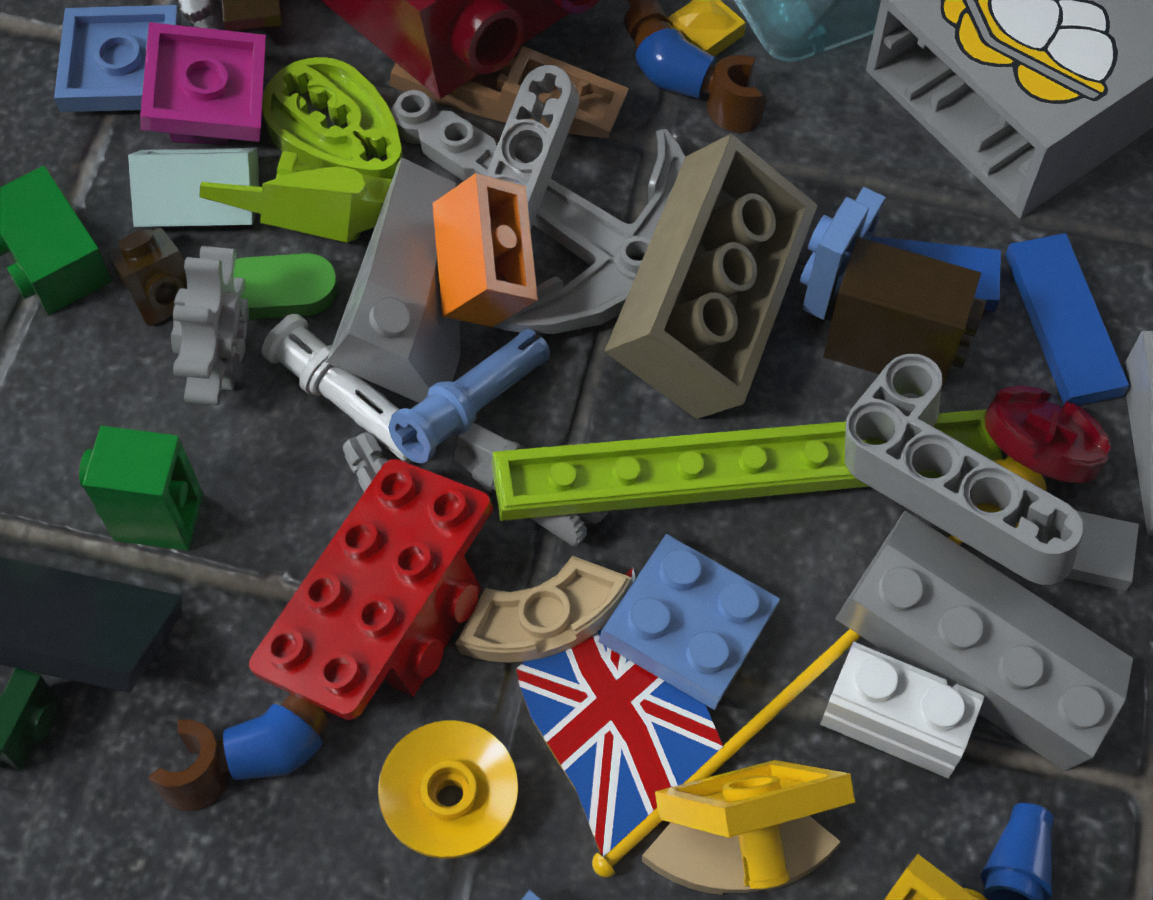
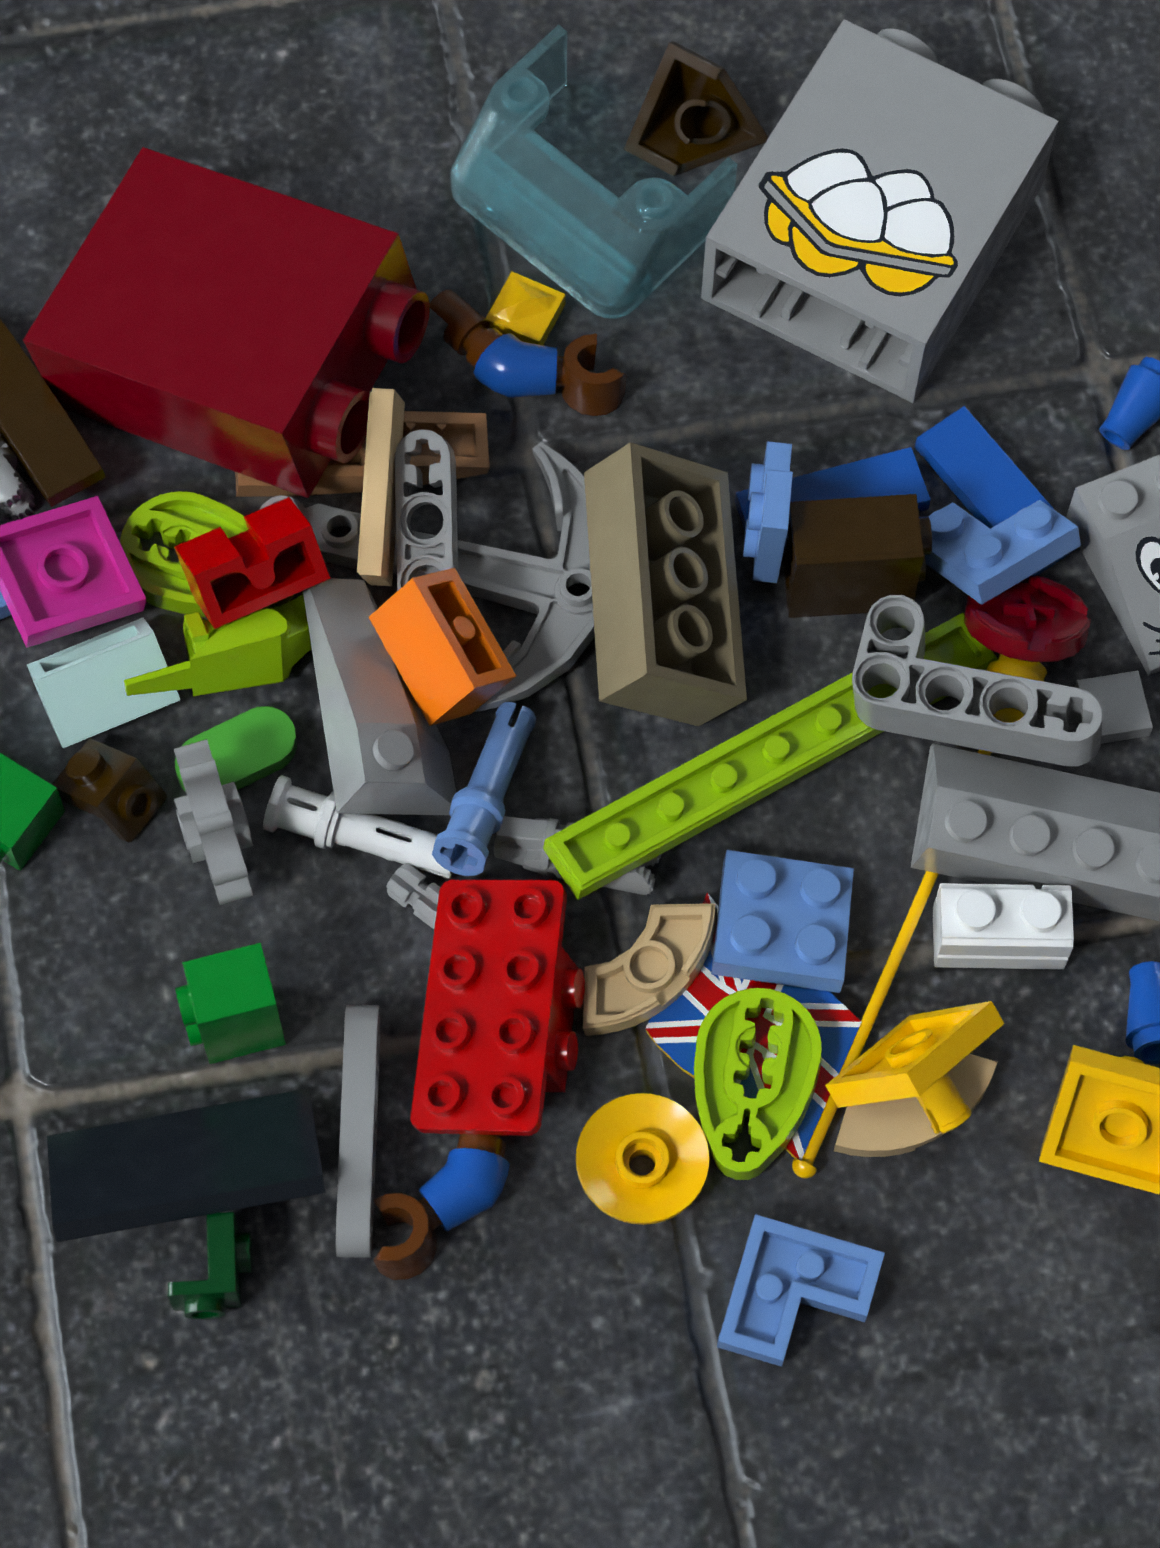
camera: 25 degrees left, 5 degrees up
(200, 653) = (358, 1131): none -> light grey beam
(357, 133) = (254, 567): none -> red brick
(526, 50) = (378, 495): none -> tan tile
(629, 770) = (719, 1062): none -> lime piece
(1030, 368) = (996, 558): none -> medium blue plate

